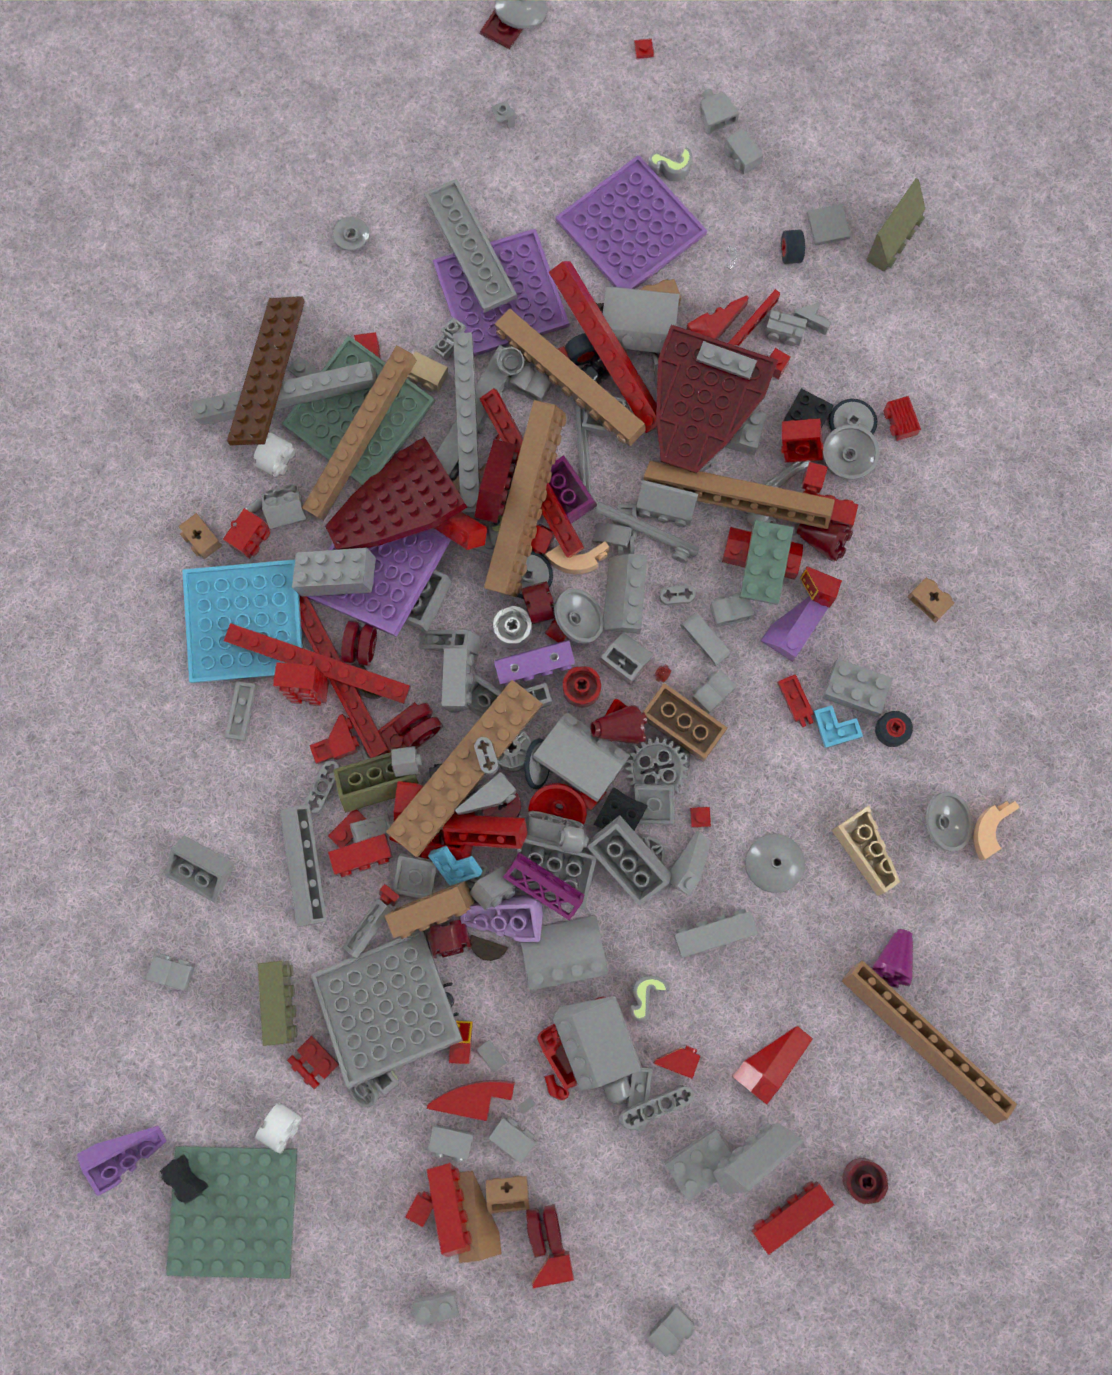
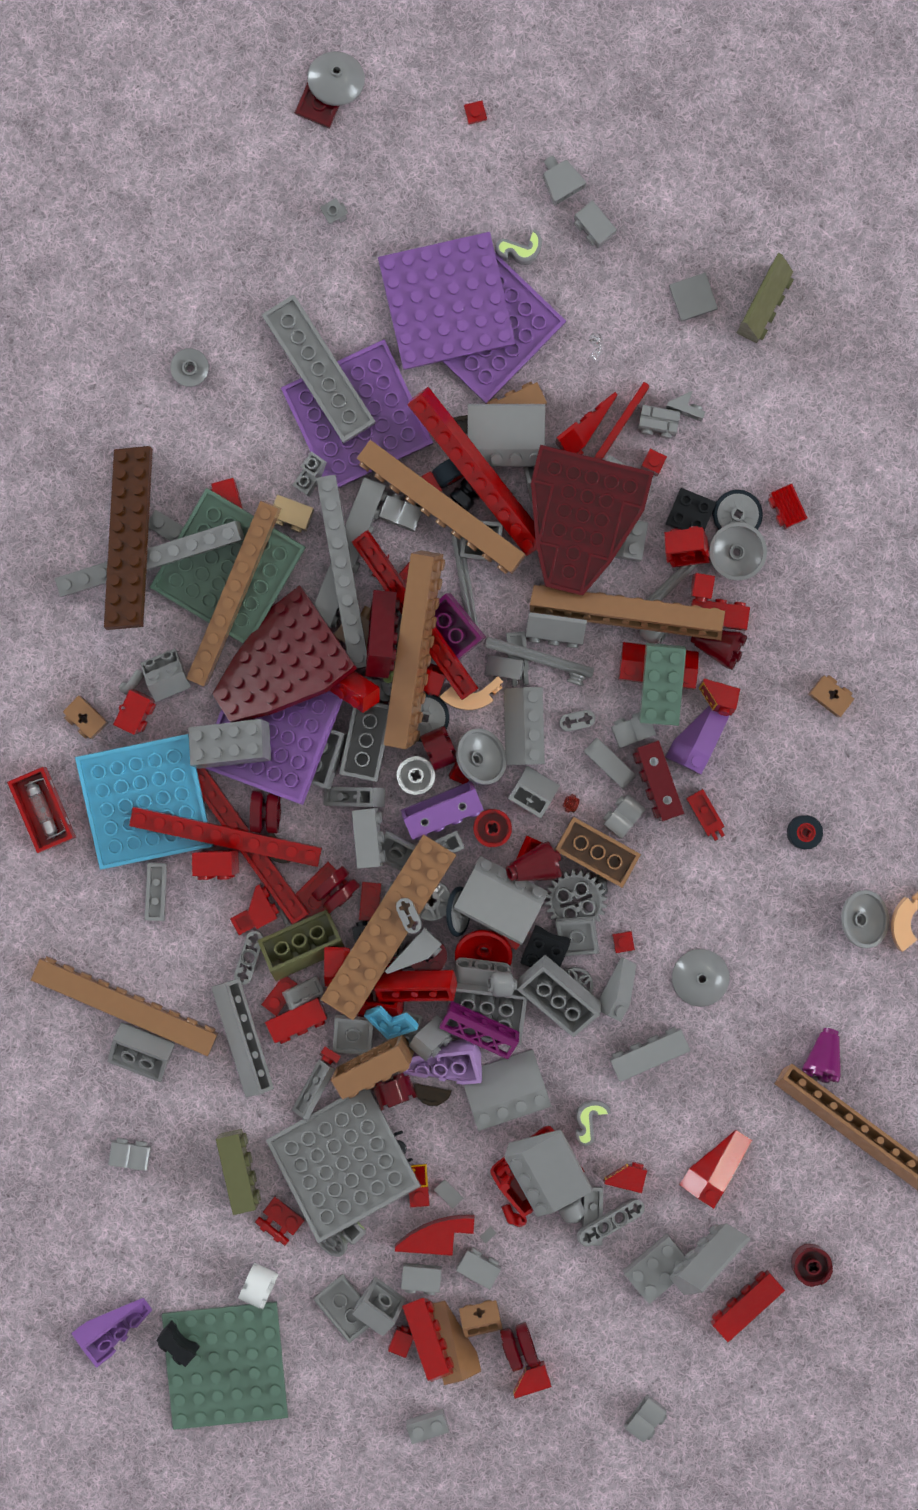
camera: 10 degrees left, 10 degrees up
(141, 617) = (41, 809): none -> red piece
(190, 820) = (124, 1006): none -> medium nougat brick
(274, 455) = (153, 621): white brick -> none
(368, 1166) = (338, 1305): none -> light grey tile
(402, 1167) = (379, 1306): none -> light grey slope
(406, 761) = (329, 926): light grey brick -> none
(451, 739) = (369, 900): none -> red plate
(466, 590) = (365, 743): none -> light grey brick
(510, 361) = (378, 497): light grey hair -> none
(597, 200) = (446, 300): none -> medium lavender plate
(726, 360) = (601, 479): light grey plate -> none
(752, 659) = (658, 780): none -> dark red piece
(792, 246) = (658, 330): black wheel -> none
(834, 732) = (745, 842): medium azure plate -> none
(857, 688) = (765, 795): light grey brick -> none
(867, 850) = (783, 949): tan wedge -> none

